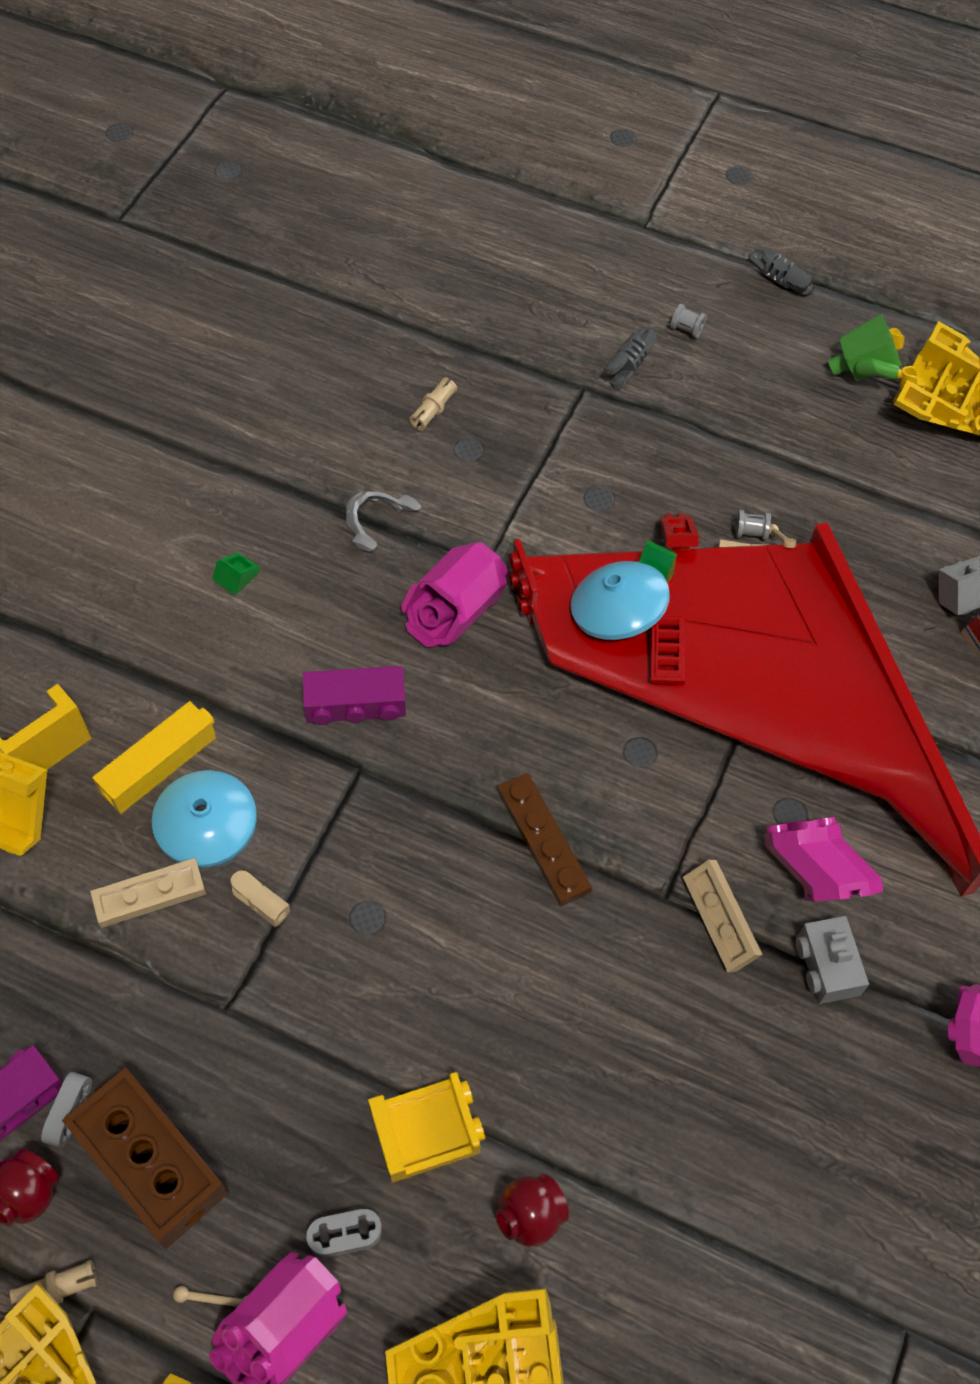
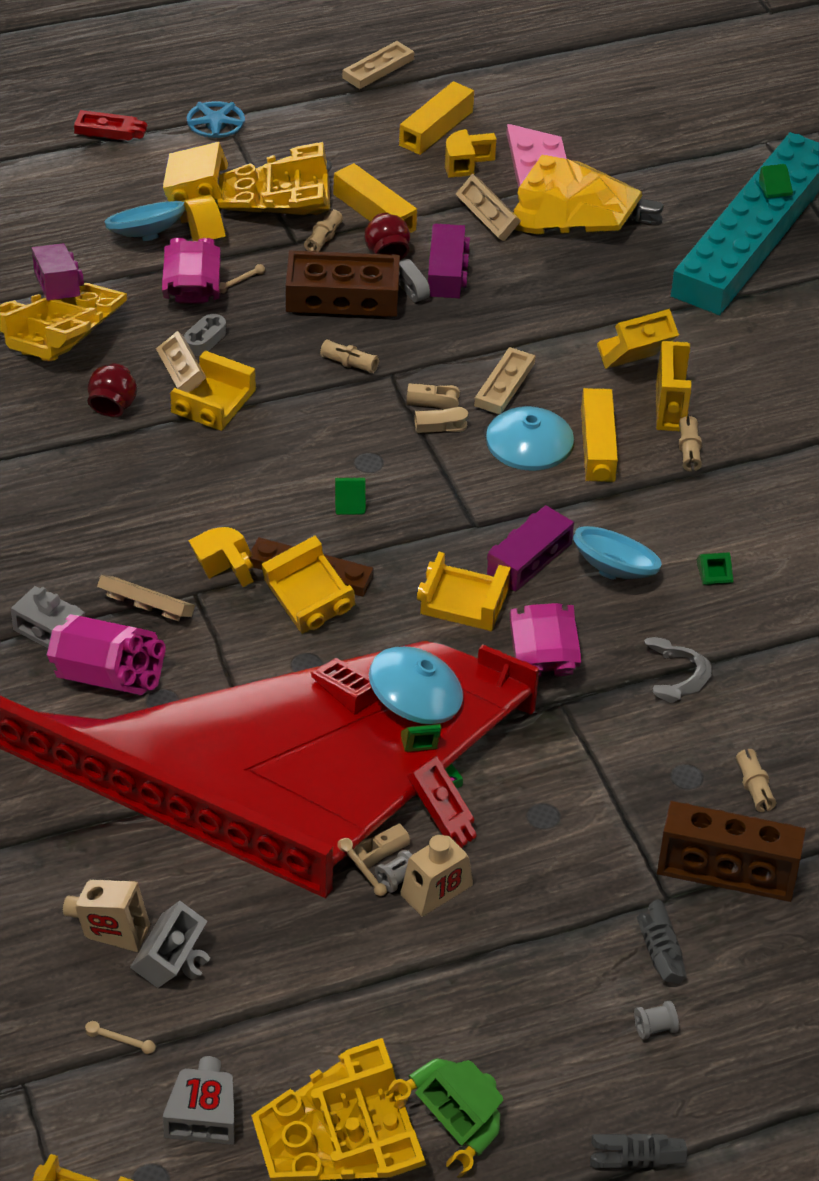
camera: 135 degrees right, 15 degrees down
(98, 686) = (690, 443): none -> tan pin
(232, 938) = (433, 396): none -> tan bar
(244, 1057) = (349, 356): none -> tan pin
(303, 622) = (615, 553): none -> medium azure dish
(423, 1190) = (181, 363): none -> tan plate
(435, 879) = (350, 496): none -> green slope
(451, 700) = (463, 594): none -> yellow panel
(526, 356) = (744, 850): none -> reddish brown brick
(579, 798) = (307, 585): none -> yellow panel
(612, 902) = (222, 549): none -> yellow brick
(731, 489) = (436, 874): none -> tan torso

